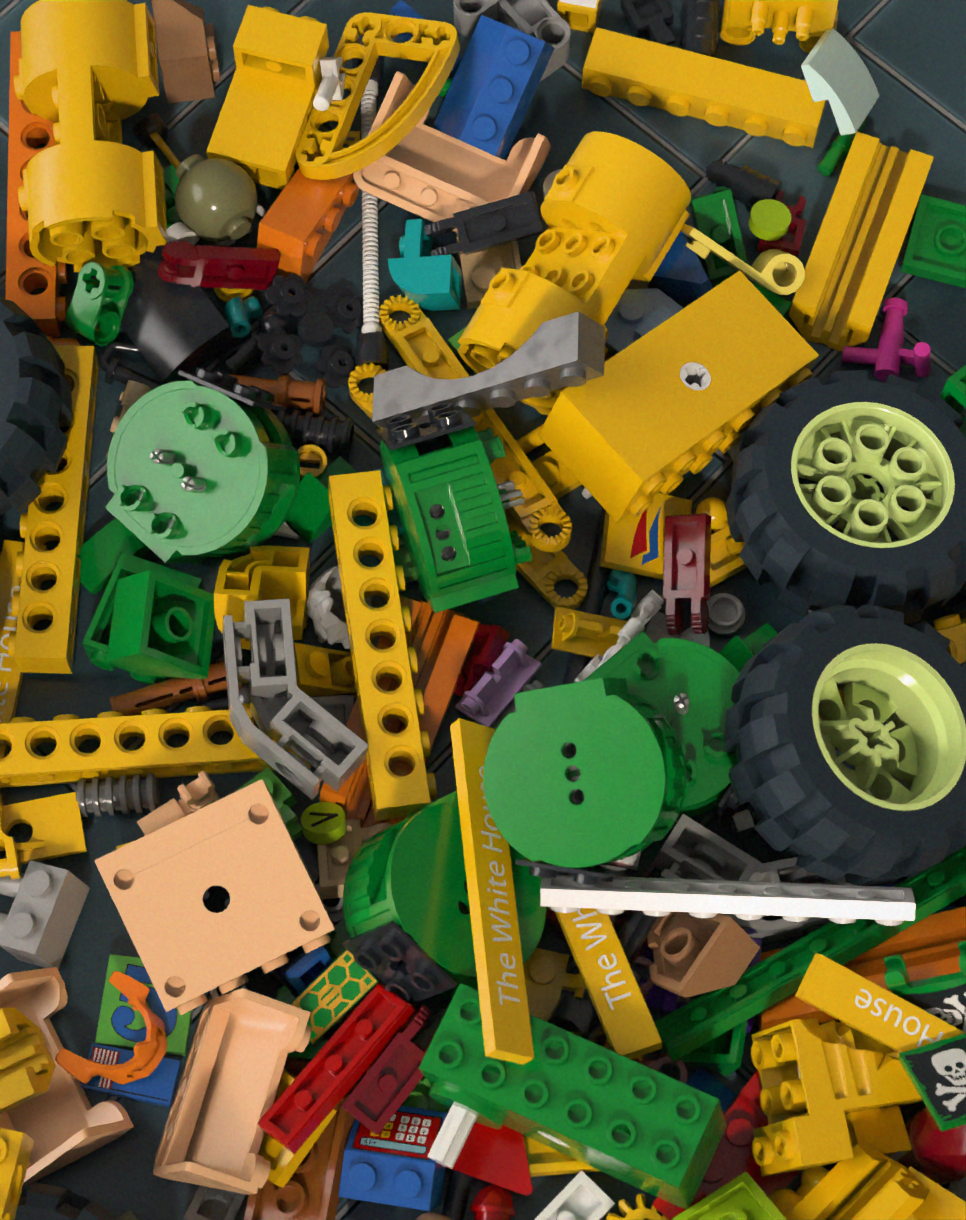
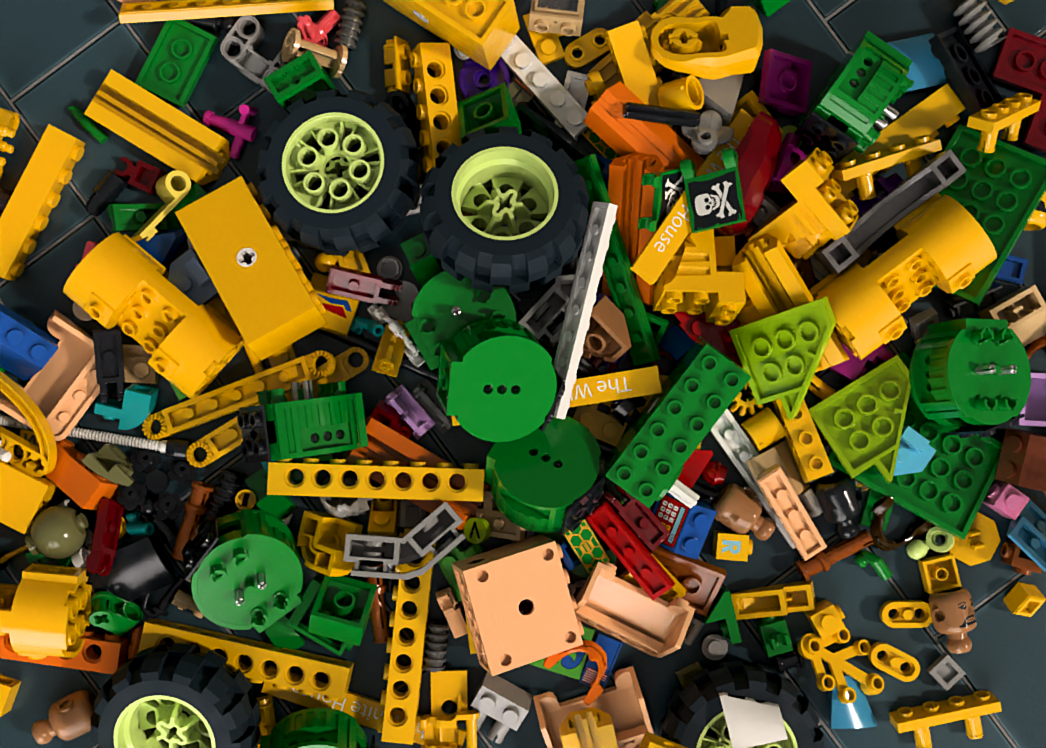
camera: 80 degrees left, 20 degrees up
(332, 255) = (111, 464): none -> olive slope
(491, 904) = (562, 449): yellow tile -> none
(555, 356) = (223, 344): flat silver arch -> none
(769, 219) = (135, 183): lime tile -> none
(840, 76) = (45, 115): light aqua slope -> none

